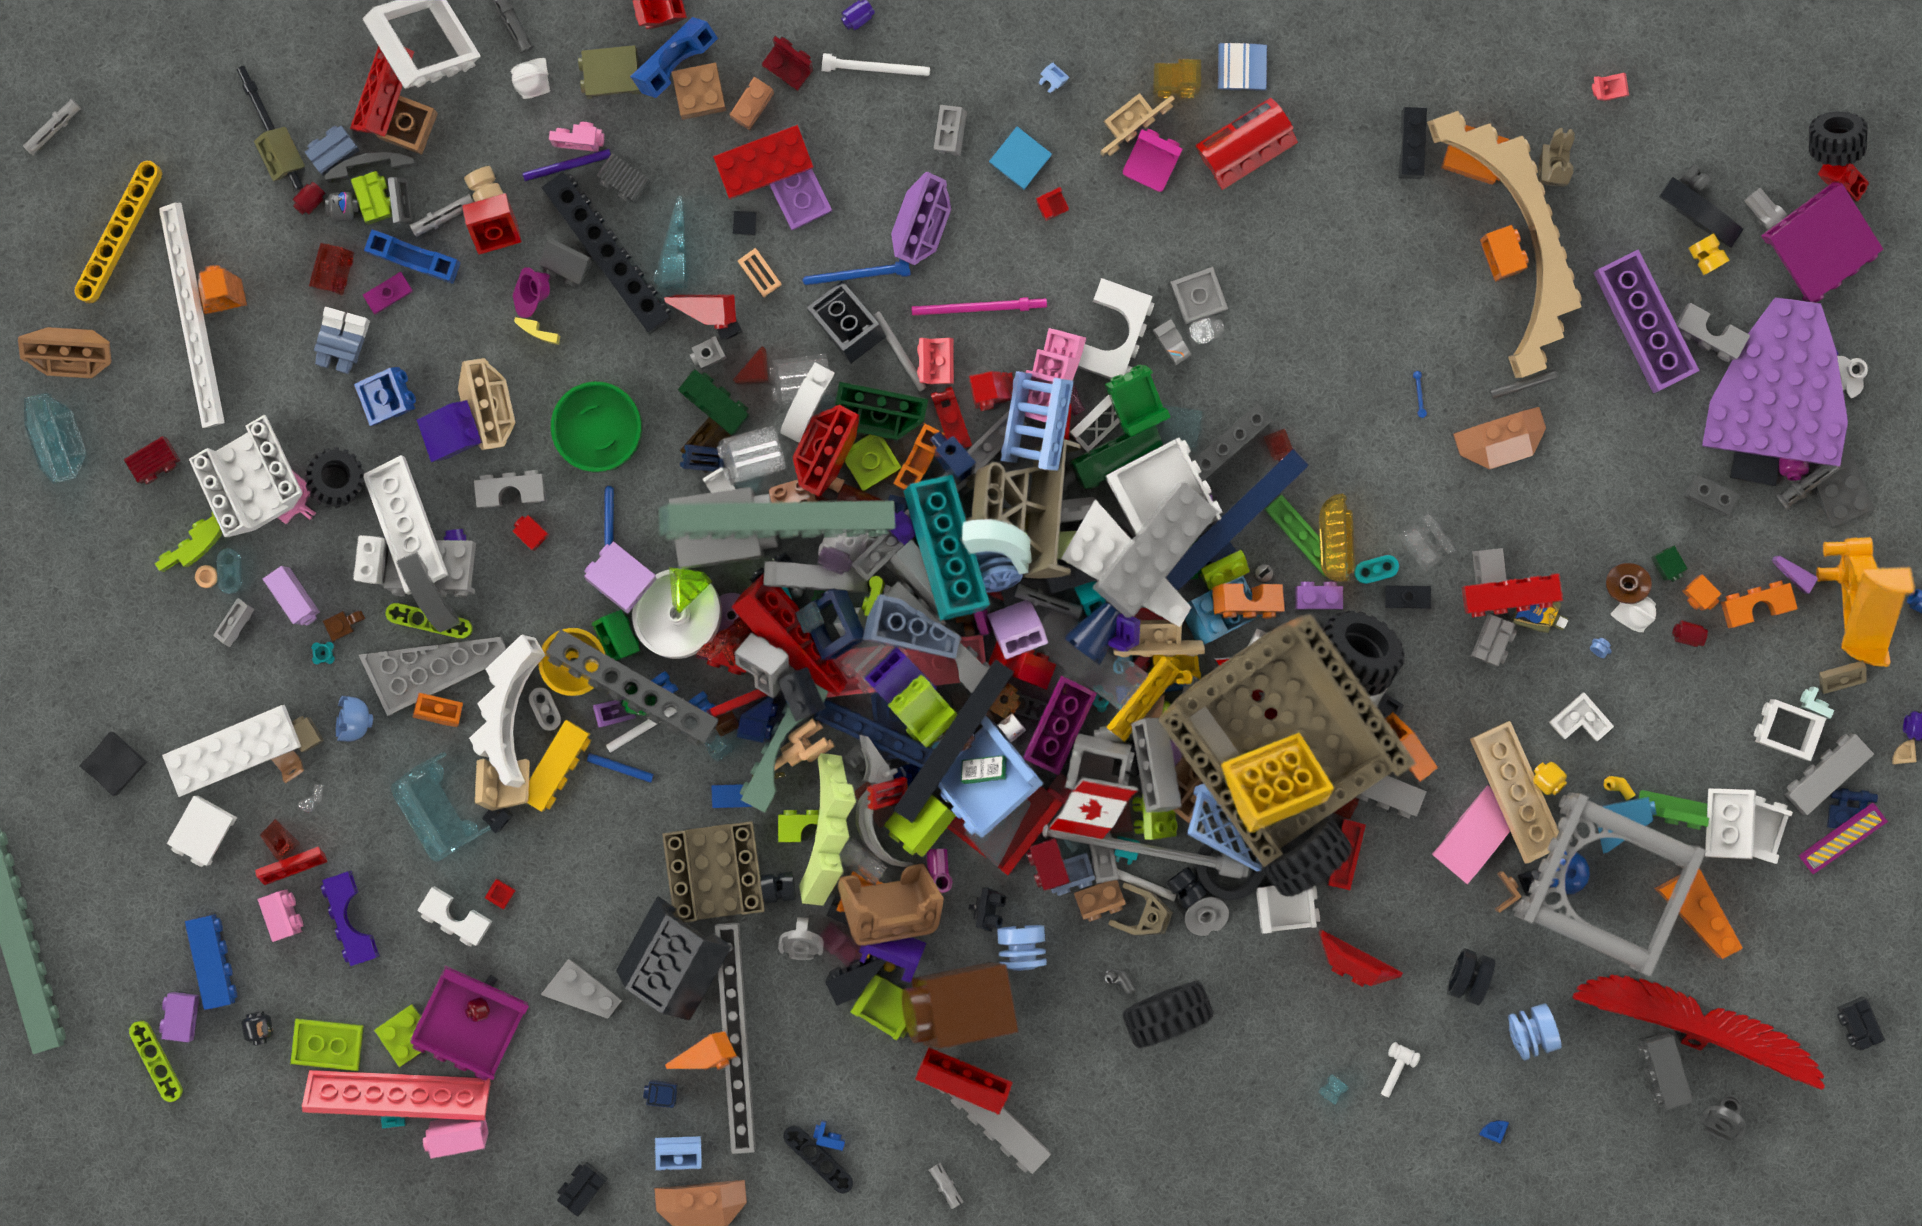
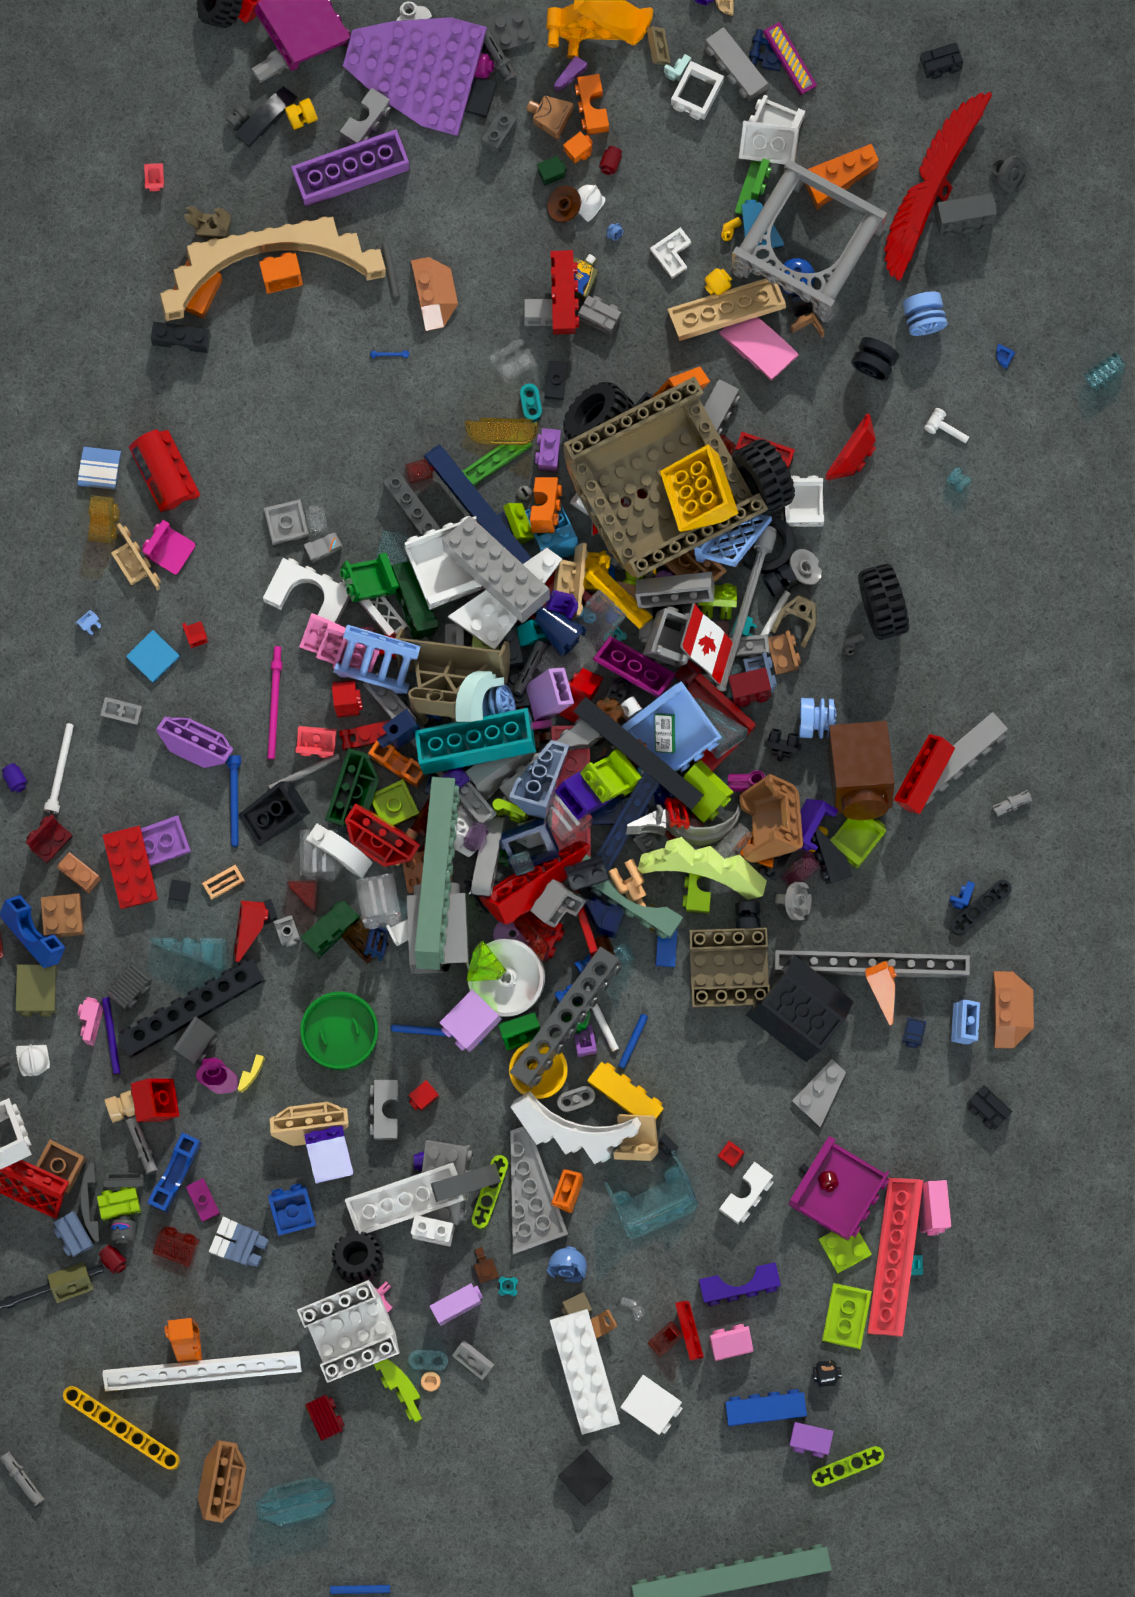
camera: 85 degrees left, 10 degrees down
(1740, 556) = (551, 115): none -> medium nougat torso

